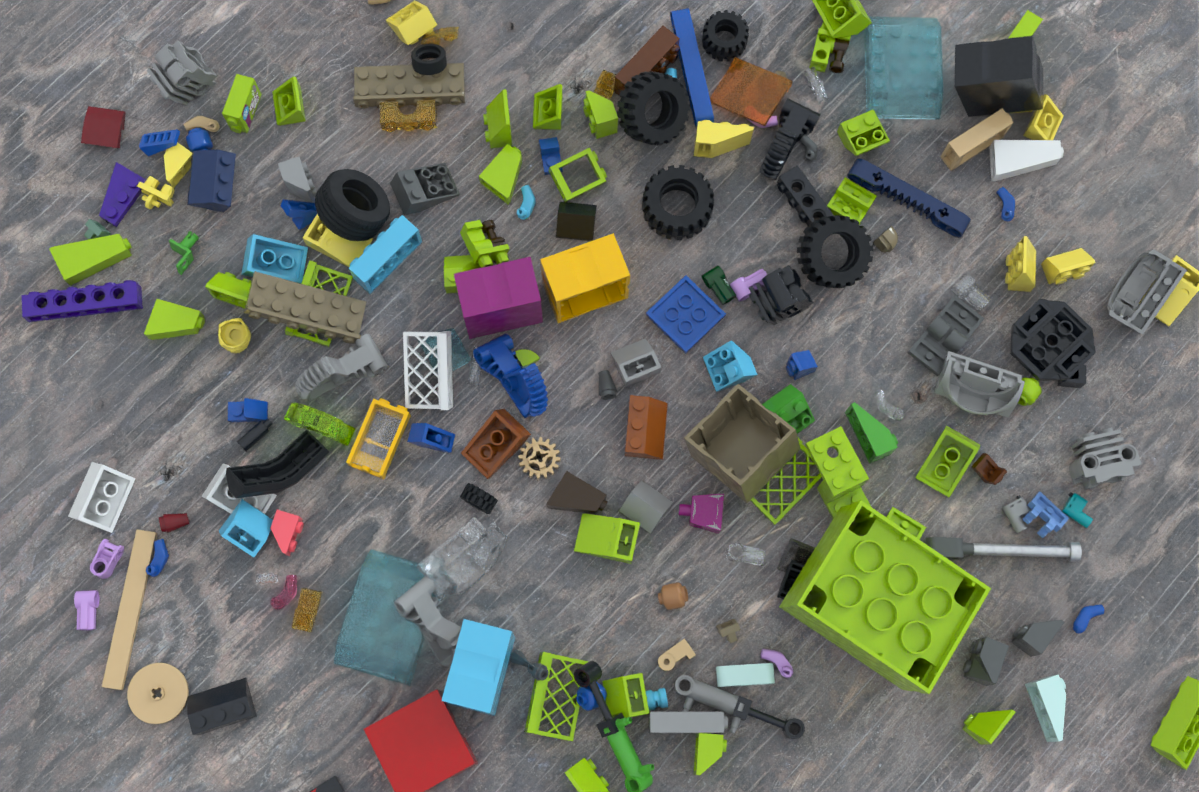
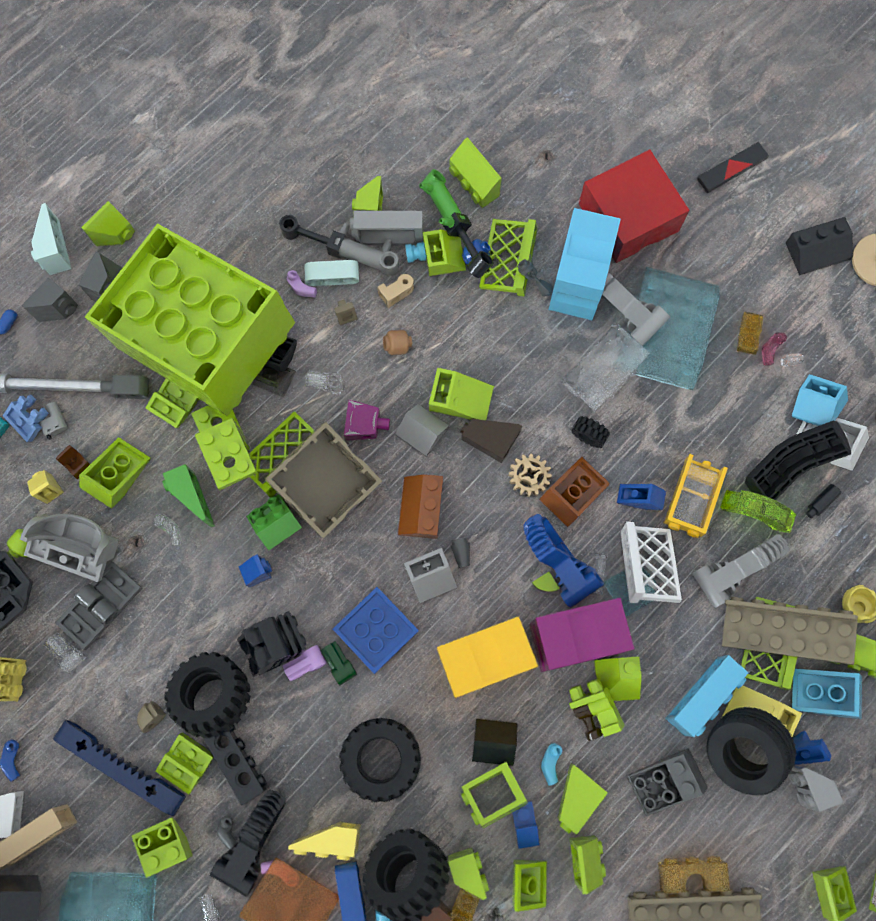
camera: 175 degrees left, 0 degrees up
(247, 411) = (833, 526): blue slope -> none
(285, 530) = (780, 405): coral slope -> none
(729, 366) = (331, 570): medium azure slope -> none
(1015, 445) = (44, 487): none -> light yellow slope

